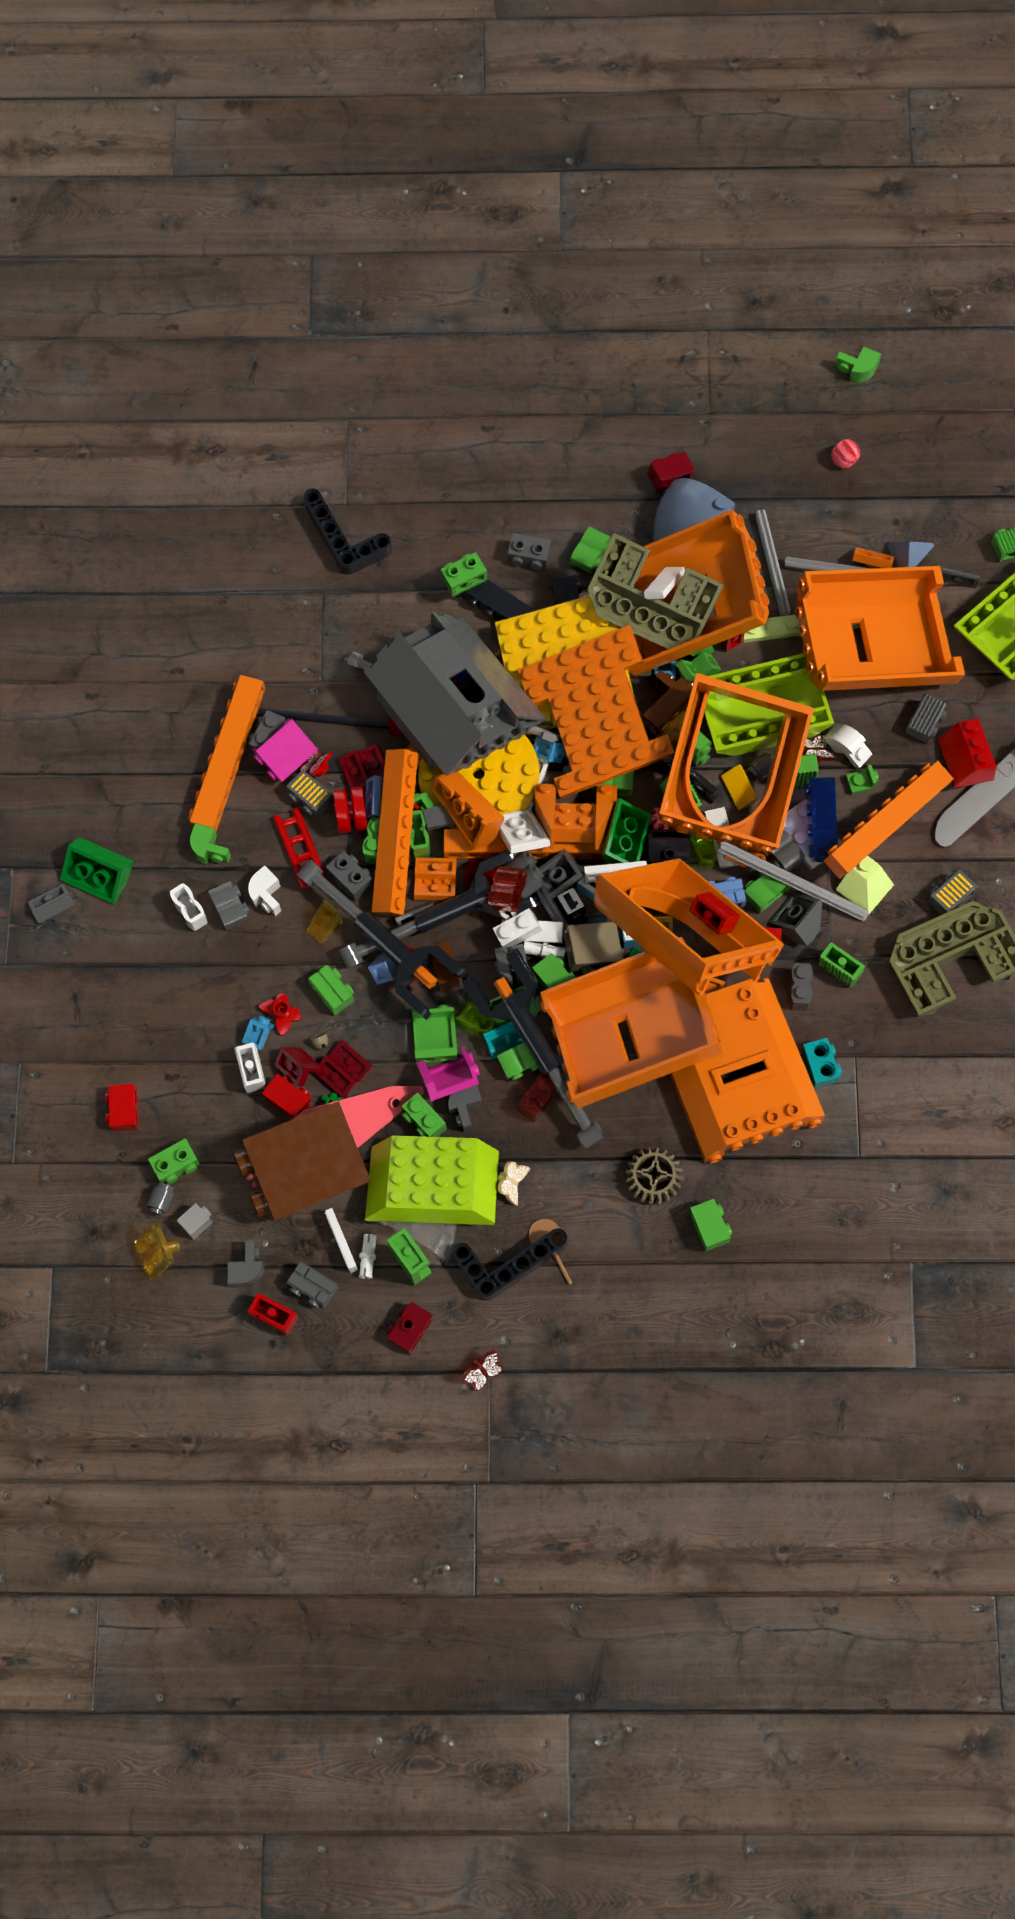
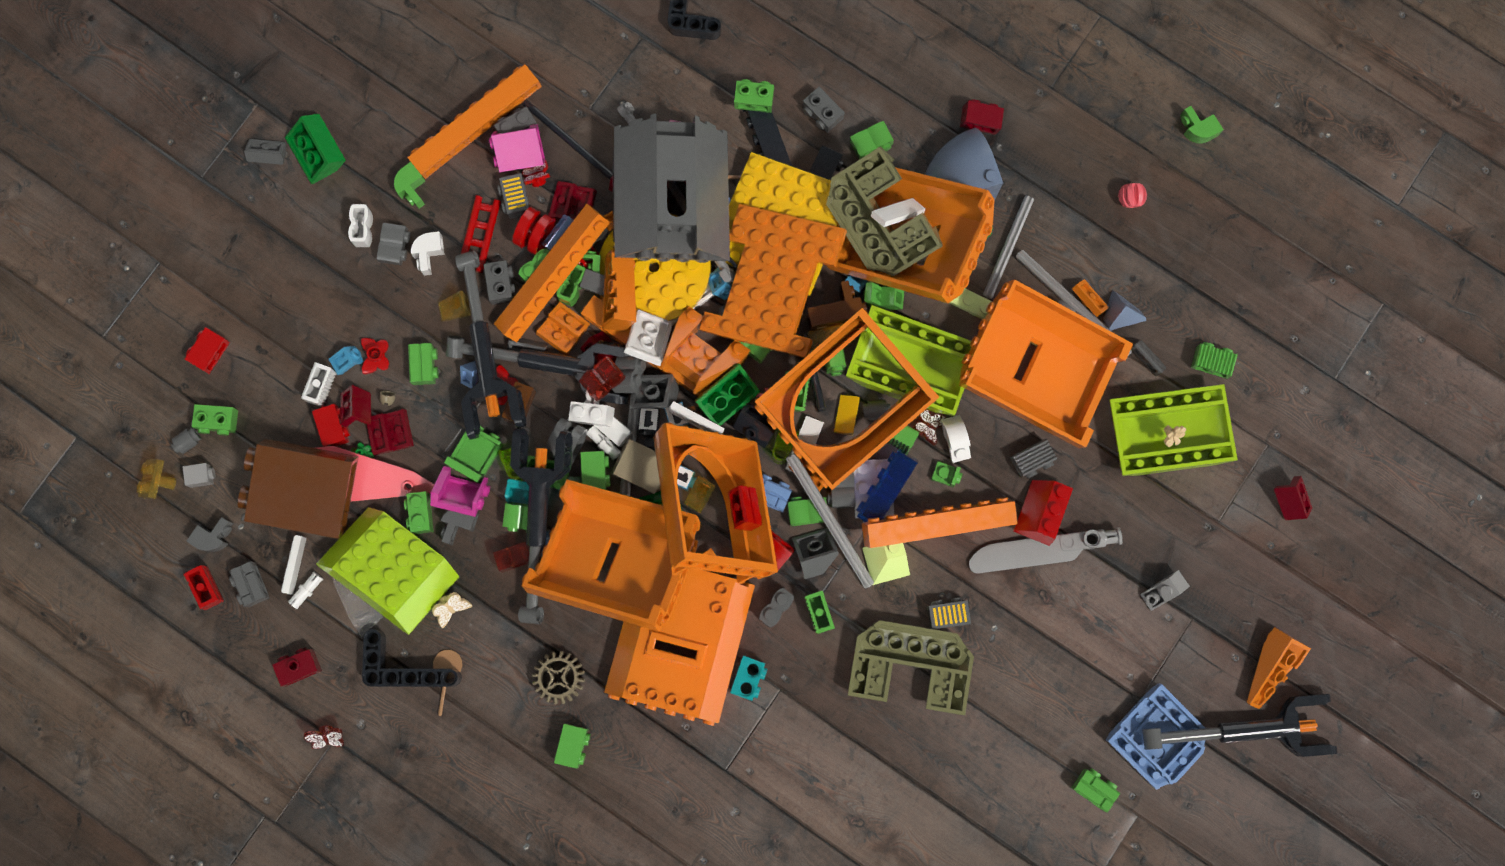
camera: 30 degrees right, 10 degrees up
(409, 1256) = (328, 615): bright green panel -> none

